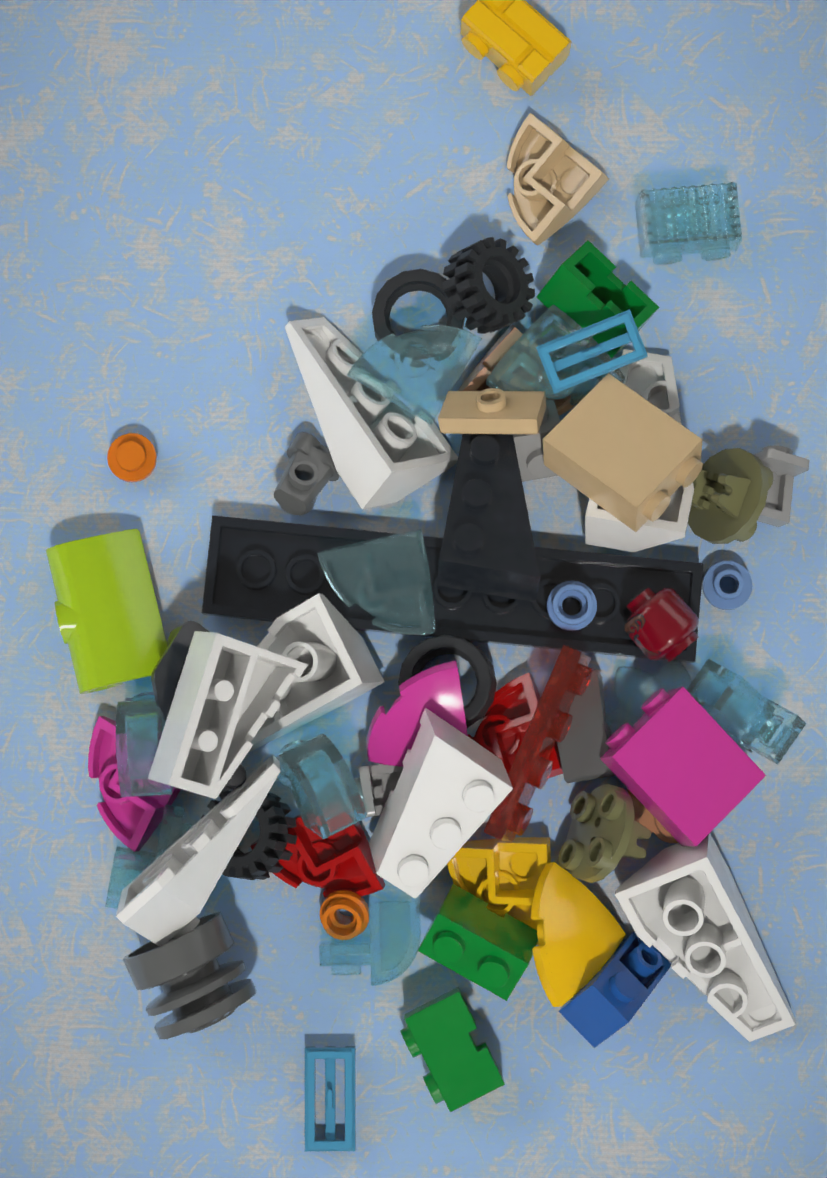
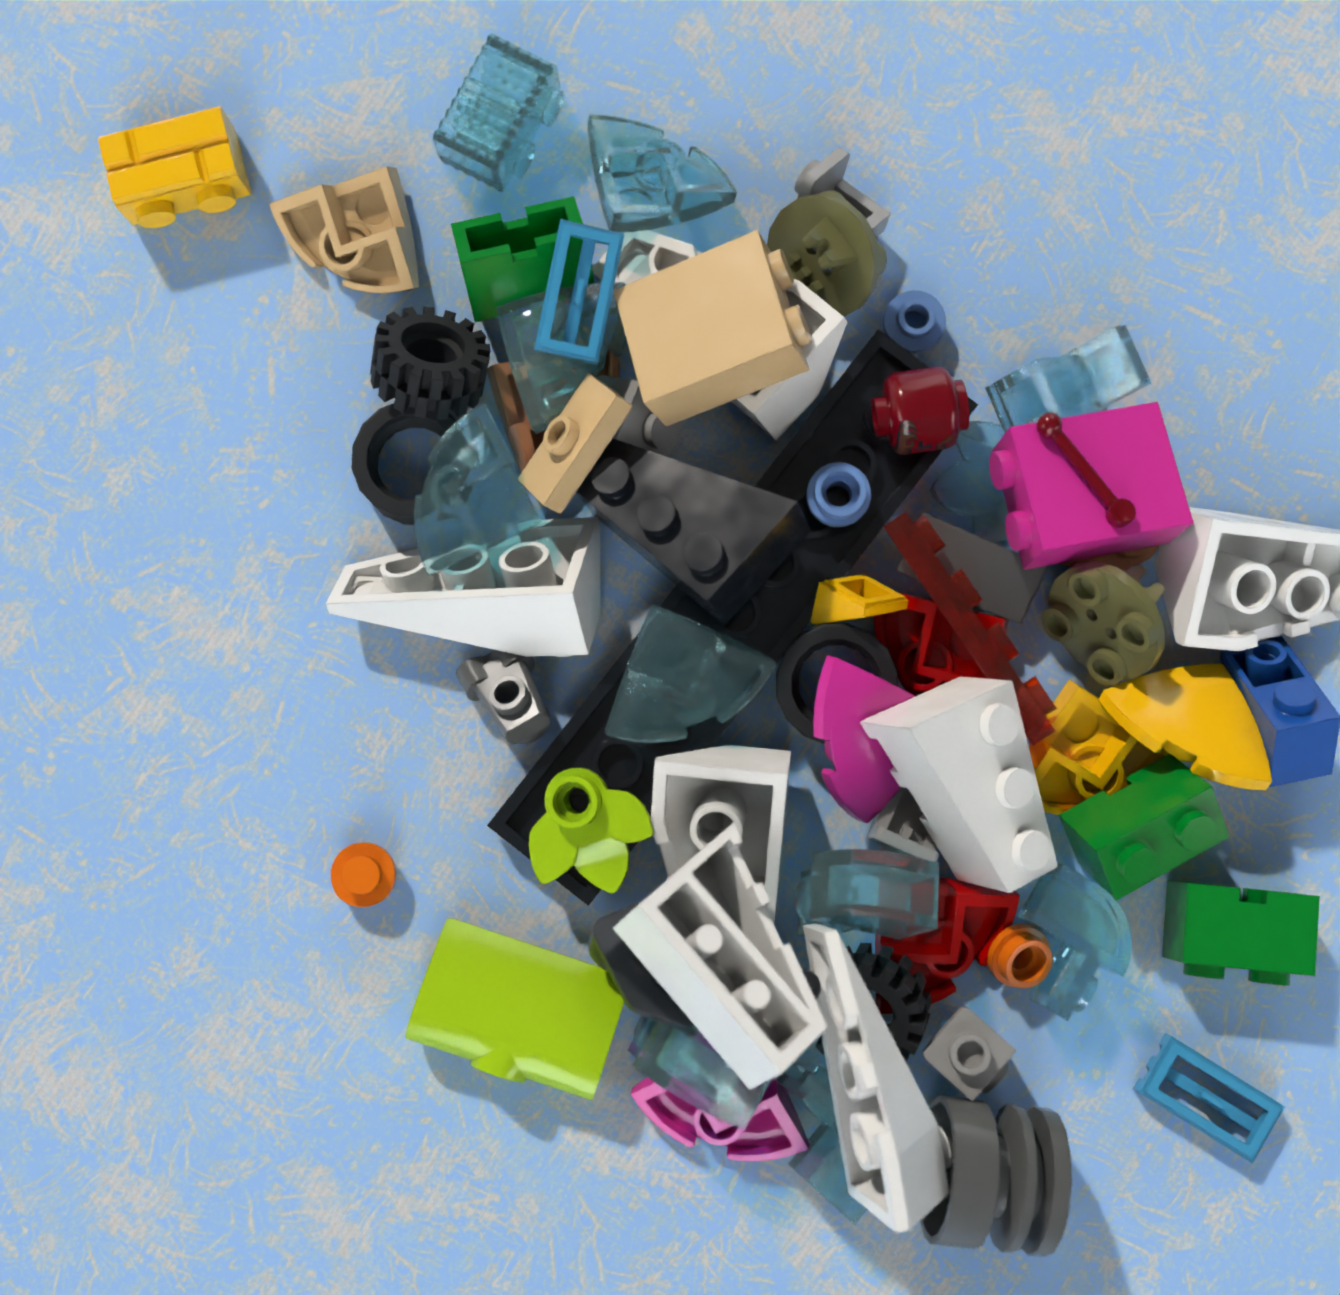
camera: 60 degrees left, 0 degrees up
(244, 586) = (589, 839): none -> lime plate
(258, 915) = (969, 1053): none -> light grey bracket
(509, 659) = (854, 599): none -> yellow slope
(670, 791) = (1119, 511): none -> dark red hinge
(711, 347) = (647, 178): none -> clear light blue brick

